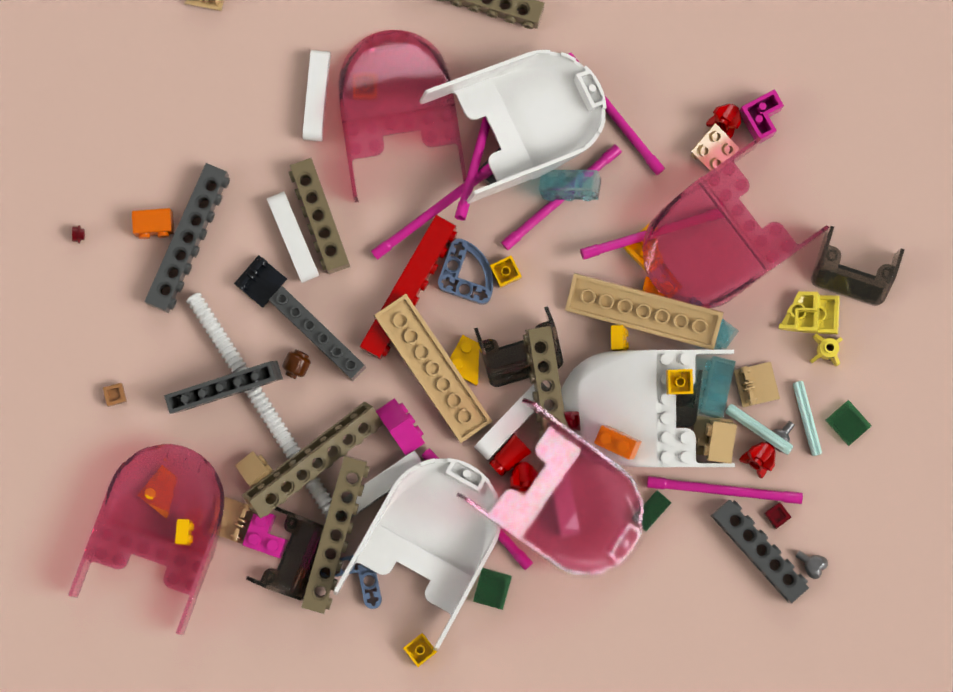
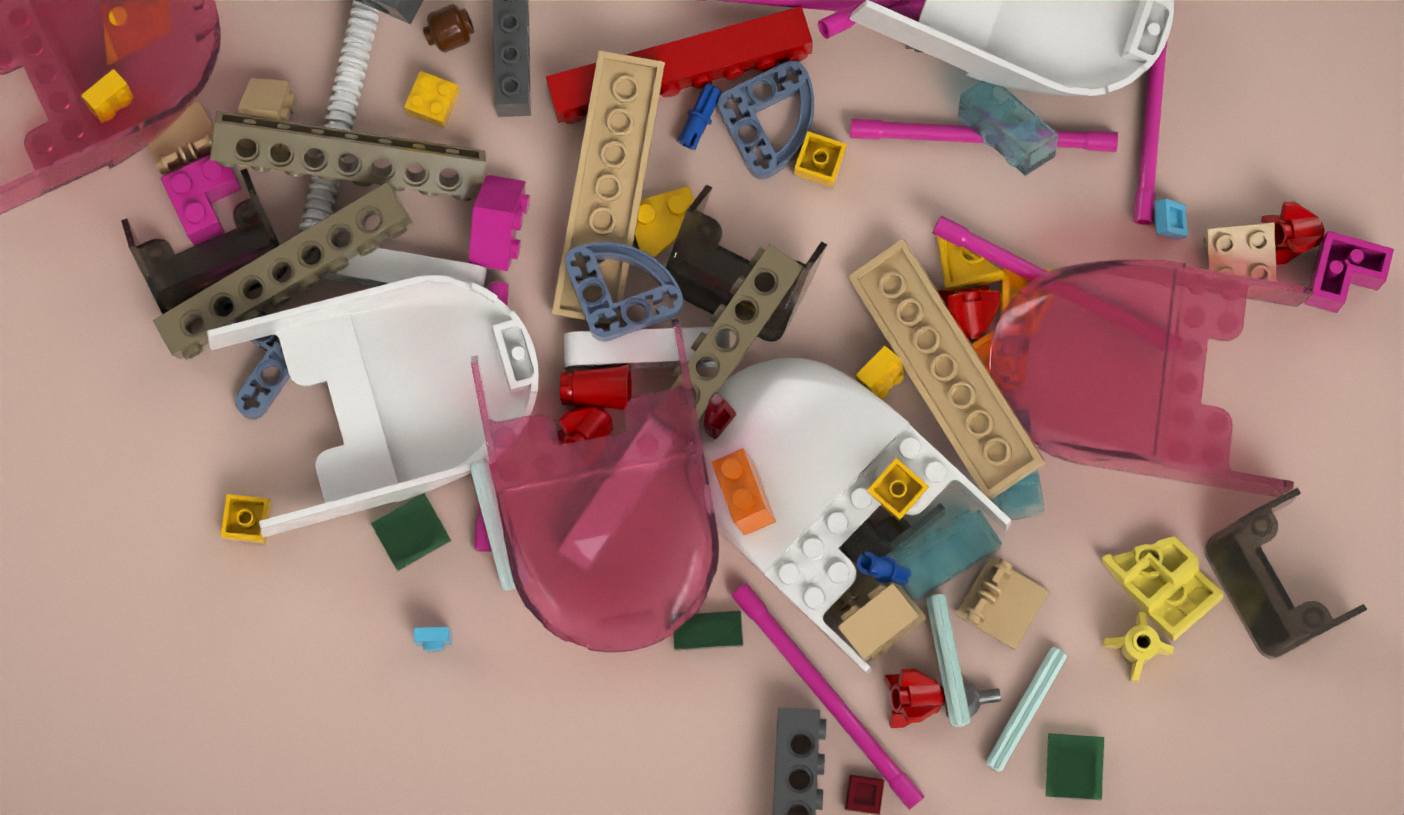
camera: 45 degrees right, 5 degrees down
(319, 400) = (432, 99): none -> yellow piece
(438, 301) = (699, 116): none -> blue axle
(481, 419) = (604, 306): none -> sand blue beam
(525, 552) = (488, 503): none -> light aqua axle
(546, 623) = (433, 638): none -> medium azure plate
(609, 261) = (964, 268): none -> yellow tile
(628, 275) = (972, 308): none -> red brick
(671, 160) = (1170, 219): none -> medium azure plate
(702, 419) = (883, 568): none -> blue axle

